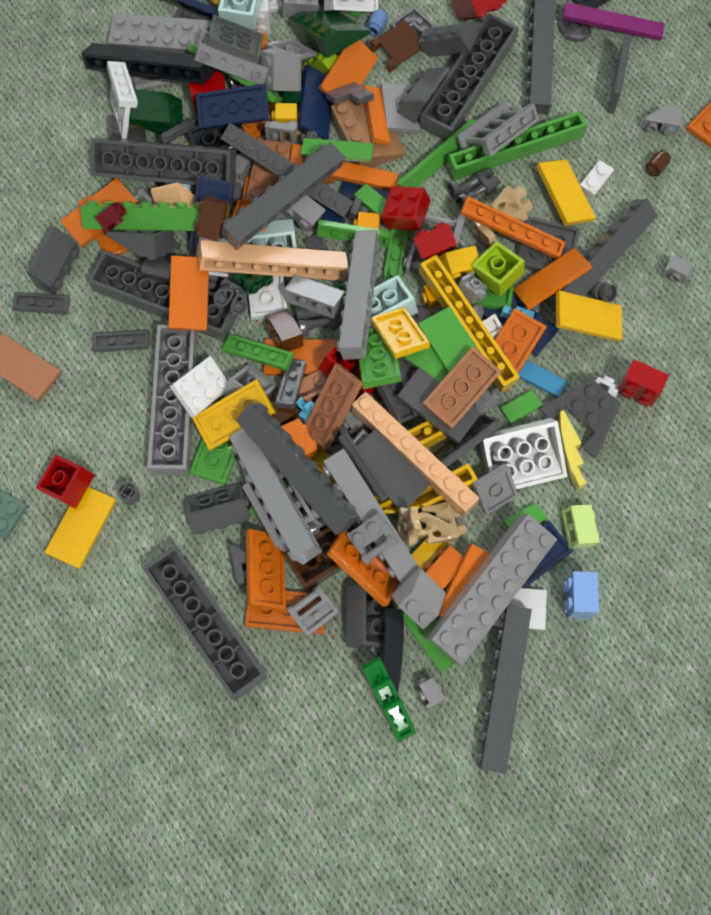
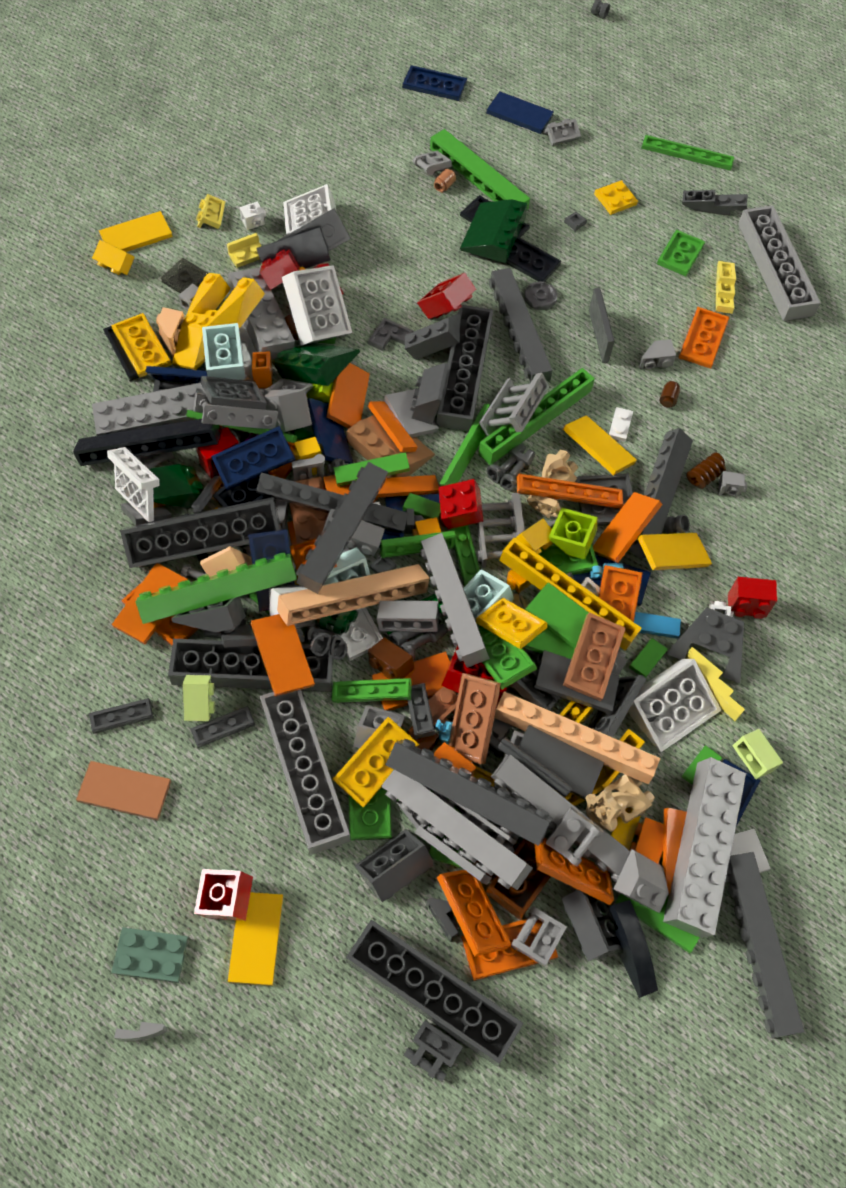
camera: 25 degrees left, 10 degrees down
(53, 261) = (121, 668): dark grey slope -> none
(106, 308) = (197, 698): none -> yellowish green brick
(111, 216) = (174, 600): dark red brick -> none
(131, 497) = (297, 886): dark grey wheel -> none
(192, 666) = (436, 1044): none -> dark grey plate
(200, 386) = (329, 744): white plate -> none
(212, 215) = (282, 570): reddish brown brick -> none
(277, 24) = (262, 369): none -> orange brick
(350, 91) = (361, 411): flat silver tile -> none
(377, 22) = (356, 340): medium blue brick -> none
(388, 699) = (654, 1000): green slope -> none
(398, 43) = (385, 355): reddish brown flag -> none
(430, 692) = (691, 977): light grey brick -> none
(435, 241) = (509, 523): red brick -> none
(472, 288) = (558, 557): light grey brick -> none
(495, 489) = (664, 743): light grey plate -> none
(581, 595) = (792, 820): light blue brick -> none
(613, 21) = (568, 282): magenta tile -> none
(658, 249) = (707, 471): none -> reddish brown piece

